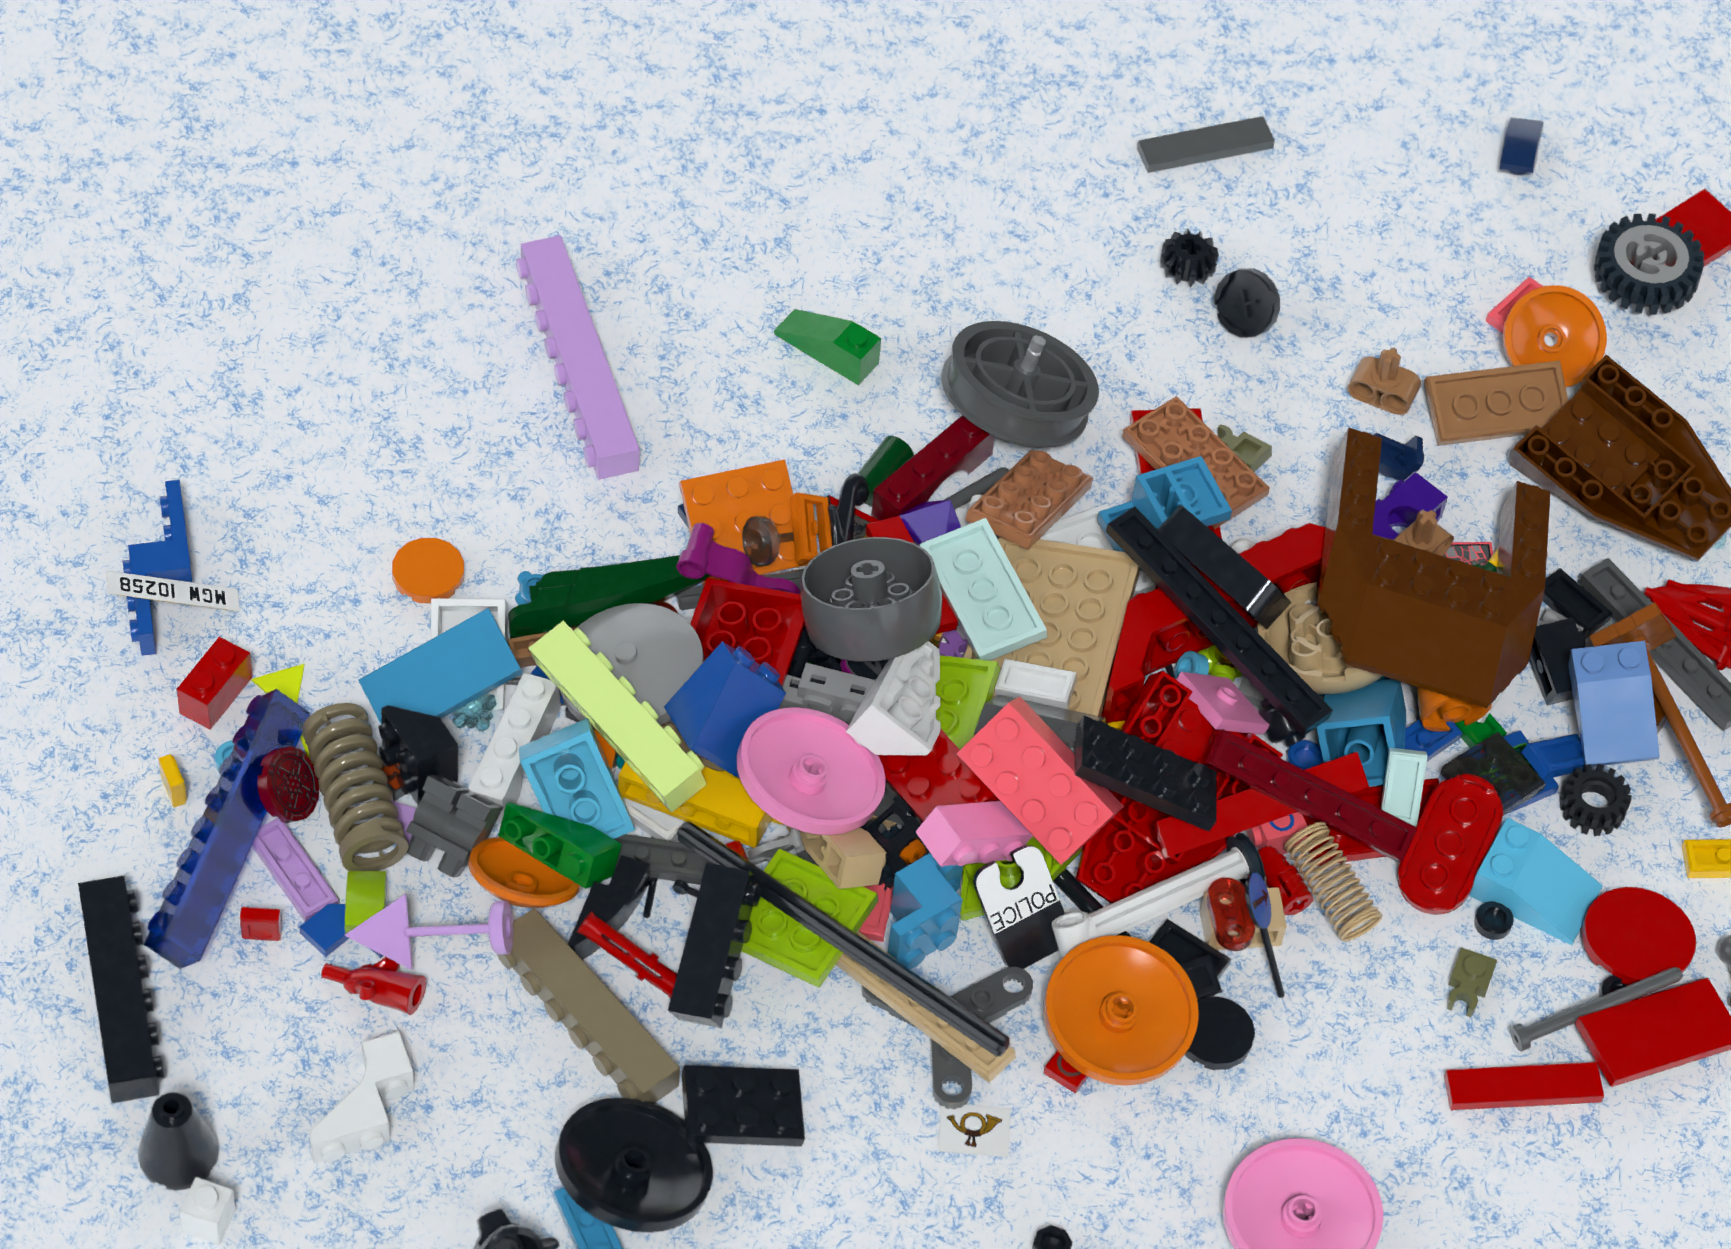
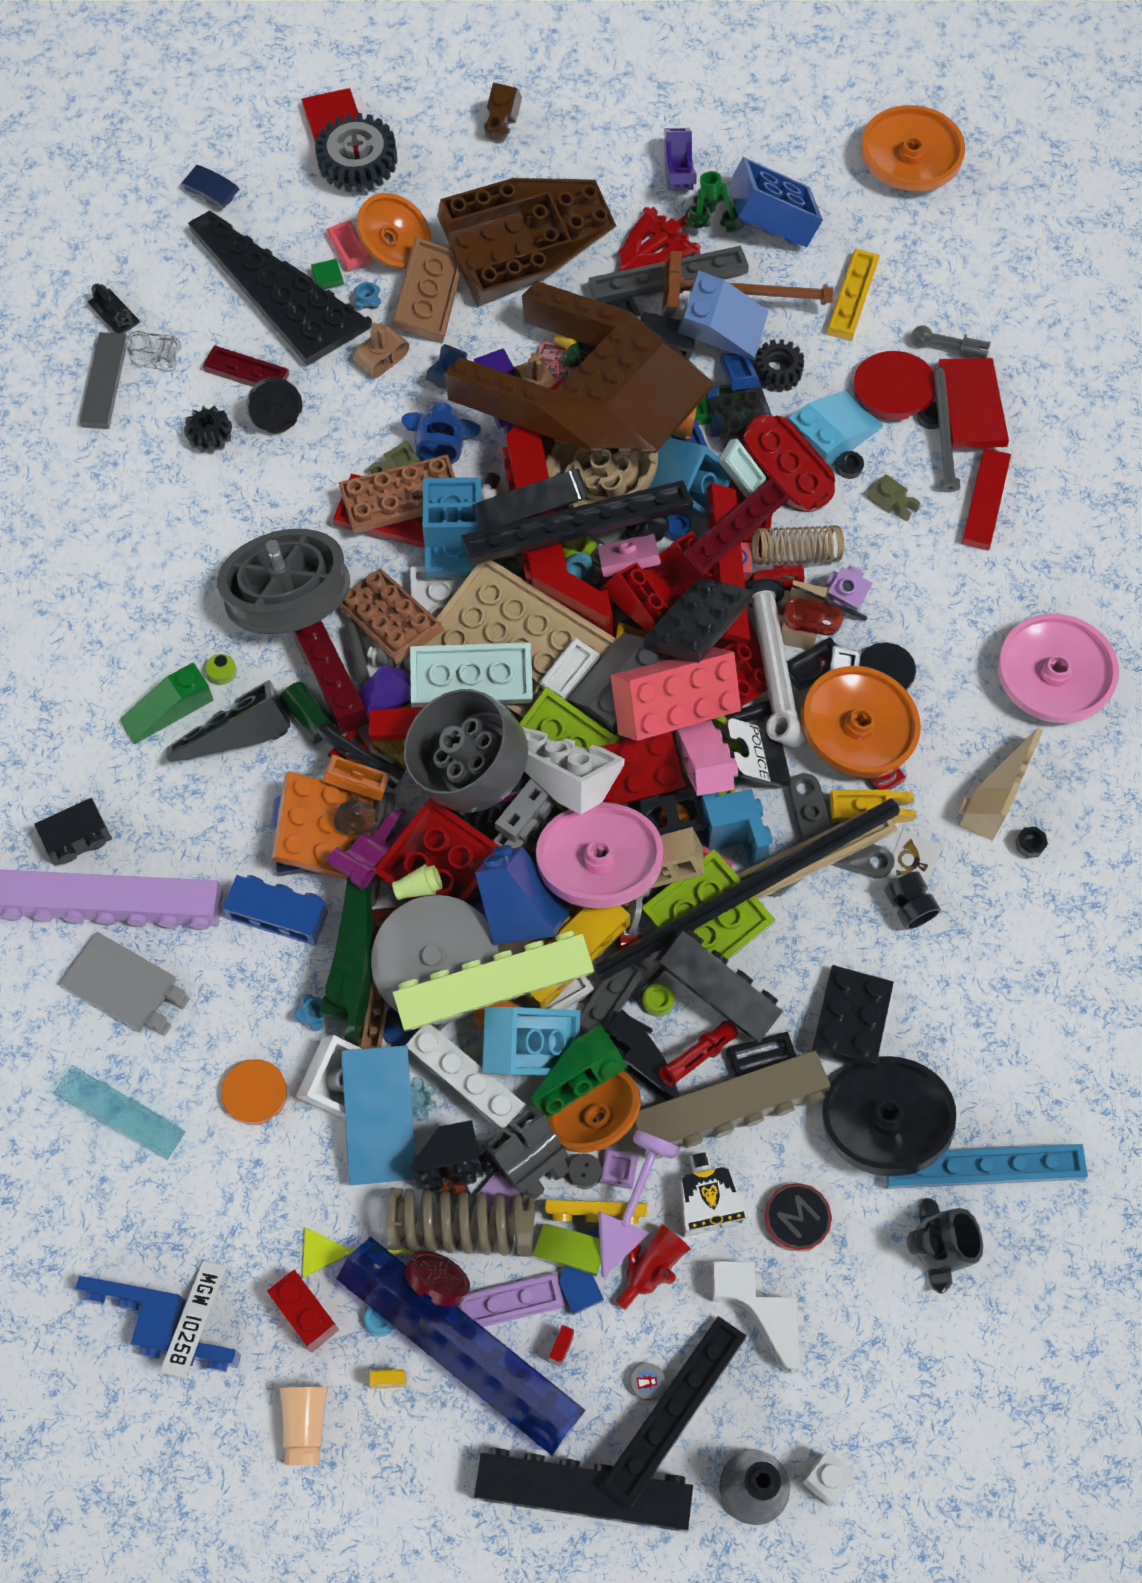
camera: 65 degrees left, 10 degrees up
(103, 720) = (302, 1423): none -> light nougat plant
(227, 1042) = (672, 1413): none -> black tile
(253, 1020) = (647, 1381): none -> tile
(359, 461) = (119, 1112): none -> clear light blue slope
(419, 916) = (564, 1209): none -> yellow tile
(459, 895) = (585, 1171): none -> dark grey tile
(470, 1017) = (709, 1198): none -> torso
(472, 916) = (619, 1169): none -> lavender tile
(485, 1115) = (797, 1217): none -> black tile
(497, 418) = (123, 984): none -> light grey tile
(634, 513) = (275, 909): none -> blue brick
(644, 312) = (73, 832): none -> black brick
(680, 909) = (658, 1000): none -> lime tile
(689, 1045) = (754, 1045): none -> black tile
(708, 619) = (418, 883): none -> yellowish green cone
(837, 420) = (251, 722): none -> black wedge
(896, 376) = (221, 669): none -> lime tile
(909, 1131) = (914, 903): none -> black wheel
(1028, 1065) = (850, 803): none -> yellow hinge
(1096, 1189) = (995, 795): none -> tan wedge
(1265, 171) = (151, 350): none -> clear piece
(1292, 268) = (241, 367): none -> dark red tile
(1295, 472) = (439, 432): none -> blue piece
(1301, 117) = (112, 309): none -> black hinge
(1301, 954) = (858, 584): none -> lavender brick
(1405, 280) = (288, 298): none -> black wing
(1458, 347) = (367, 295): none -> dark azure plate
(1466, 300) = (327, 274): none -> green tile

